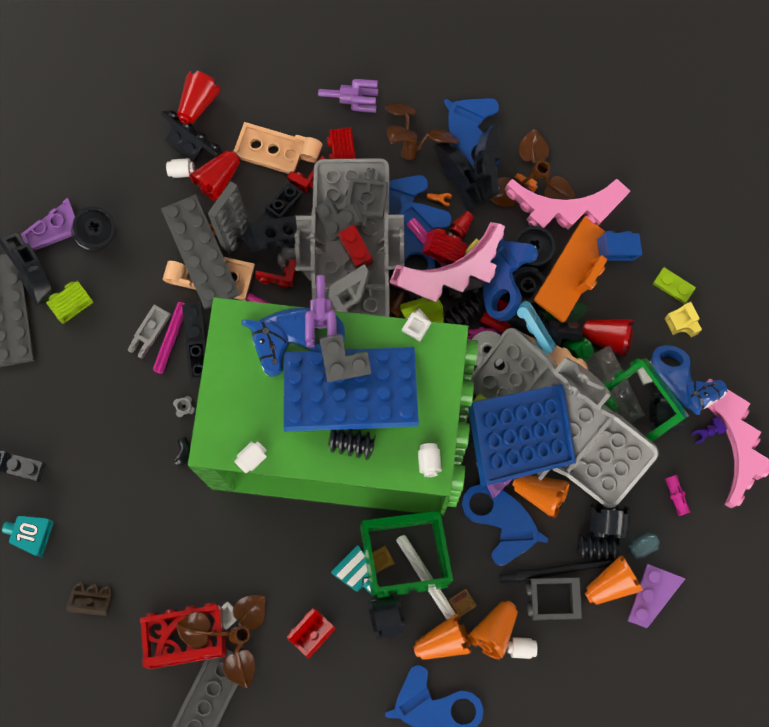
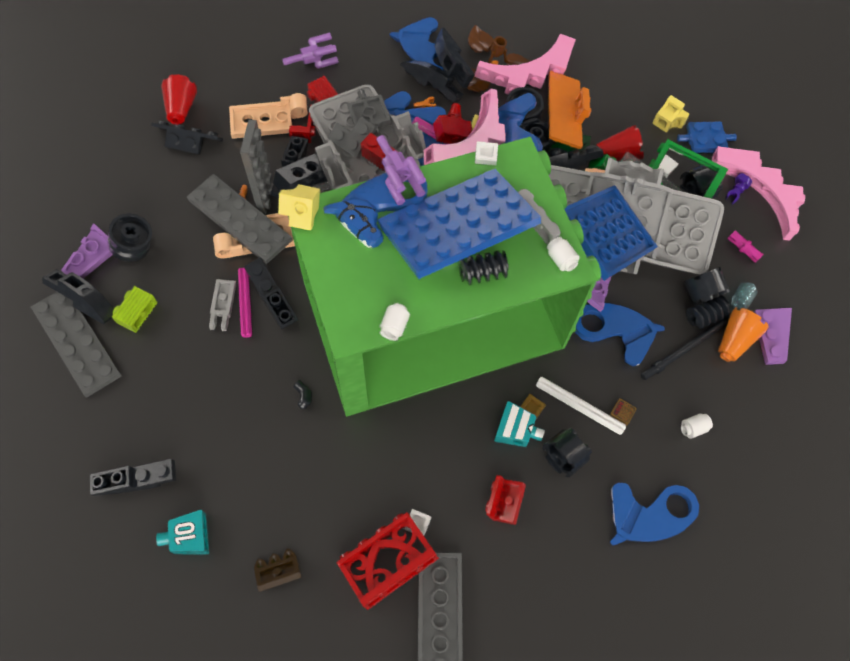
camera: 30 degrees left, 10 degrees down
(178, 403) = (285, 349): light grey plate -> none
(180, 168) = (188, 162): white brick -> none
(216, 174) = (223, 154): red cone -> none
(221, 310) = (300, 205): none -> light yellow brick
(239, 666) = (435, 507): reddish brown plant -> none
(342, 366) = (440, 199): dark grey plate -> none
(407, 521) = (579, 370): green window -> none
(410, 144) = (380, 72): reddish brown plant -> none
(426, 412) = (547, 229): none -> light grey hinge
(444, 641) = (628, 449): orange cone -> none
(495, 630) = (666, 421): orange cone -> none
(536, 327) = (563, 155): medium azure plate -> none
(544, 493) = (638, 288): orange cone -> none
(575, 599) = (714, 363): dark grey window -> none
(620, 246) = (592, 78): blue piece -> none
(674, 285) = (646, 96): lime plate -> none
(689, 393) = (722, 155): blue animal -> none
(711, 359) = (706, 136): none -> blue plate

